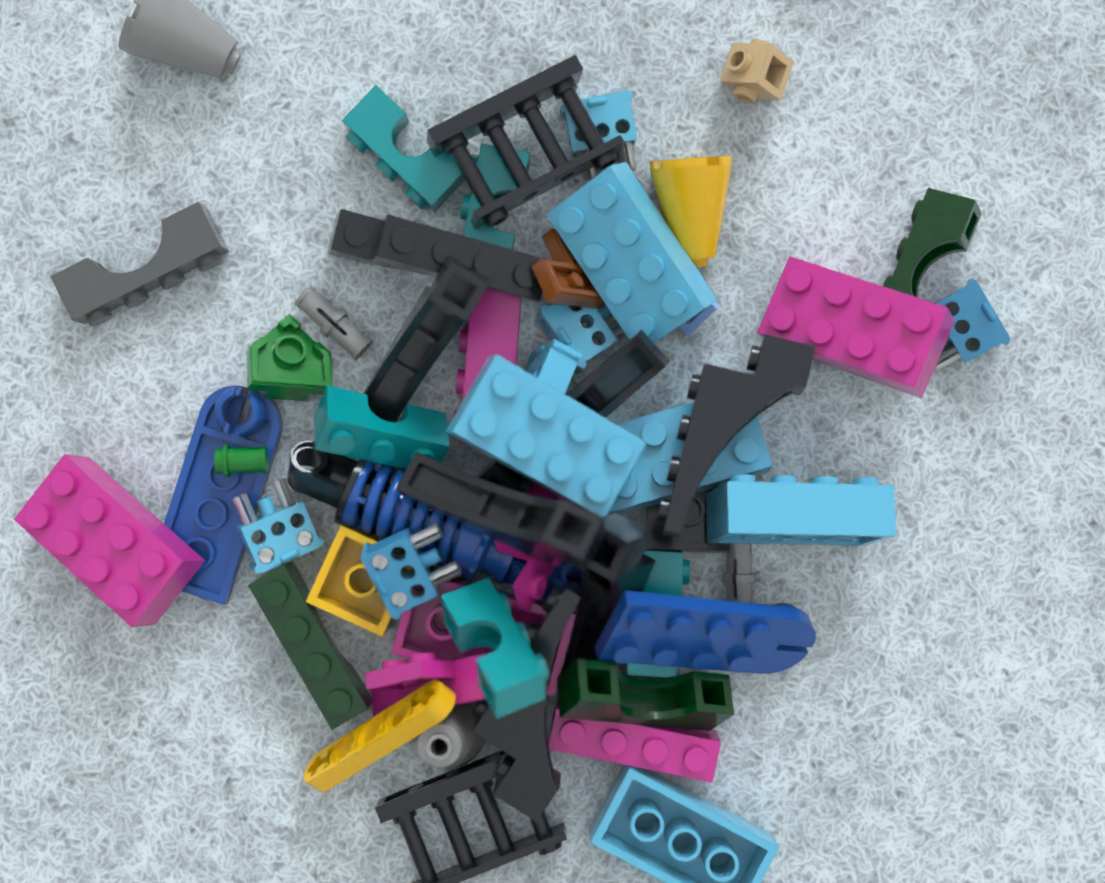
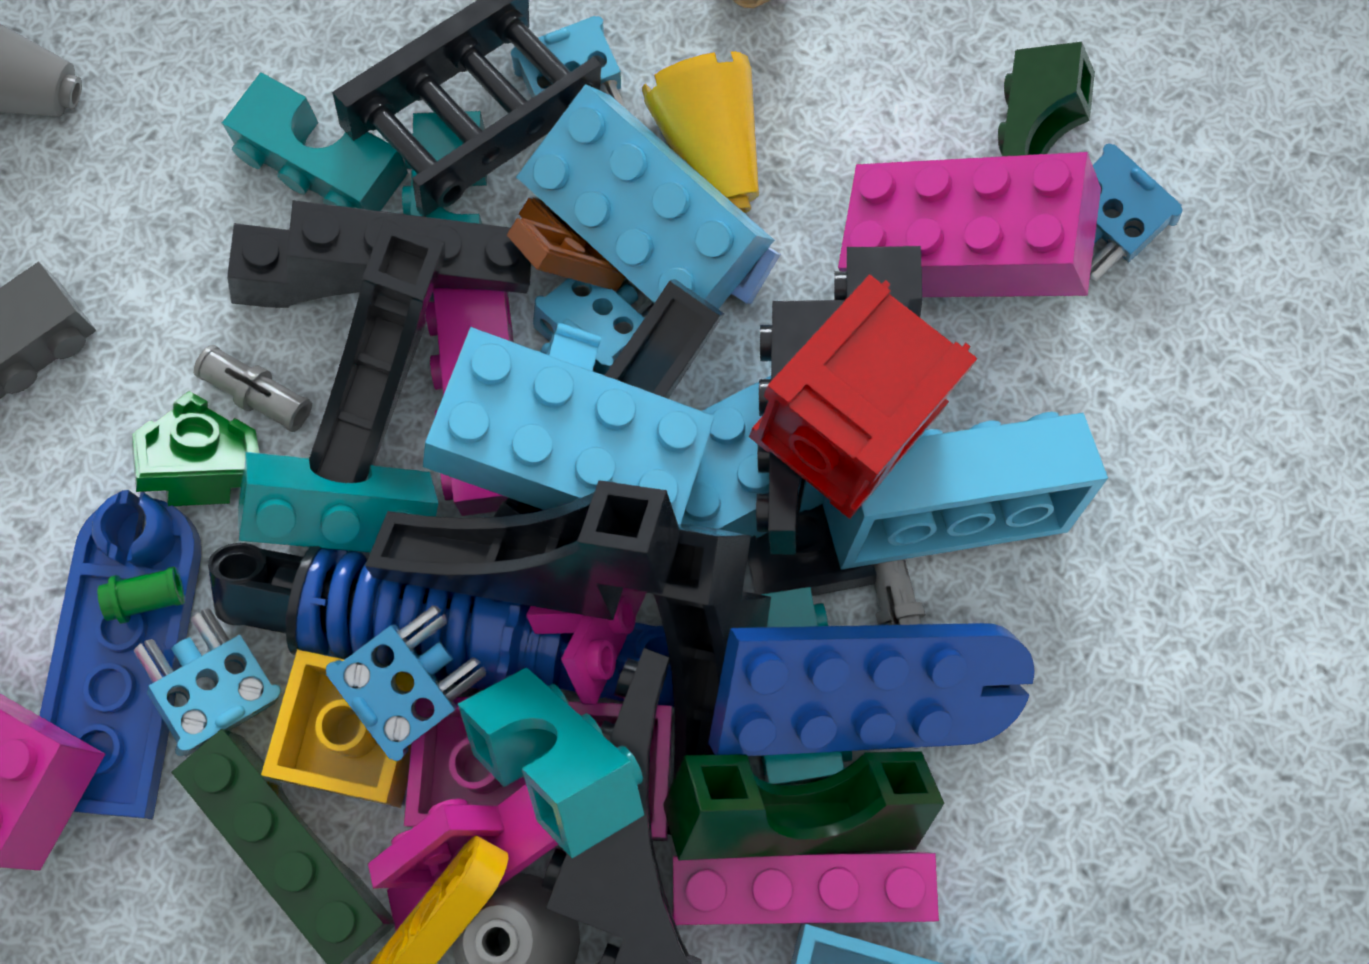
camera: 10 degrees left, 15 degrees down
(745, 464) = (859, 395): none -> red container

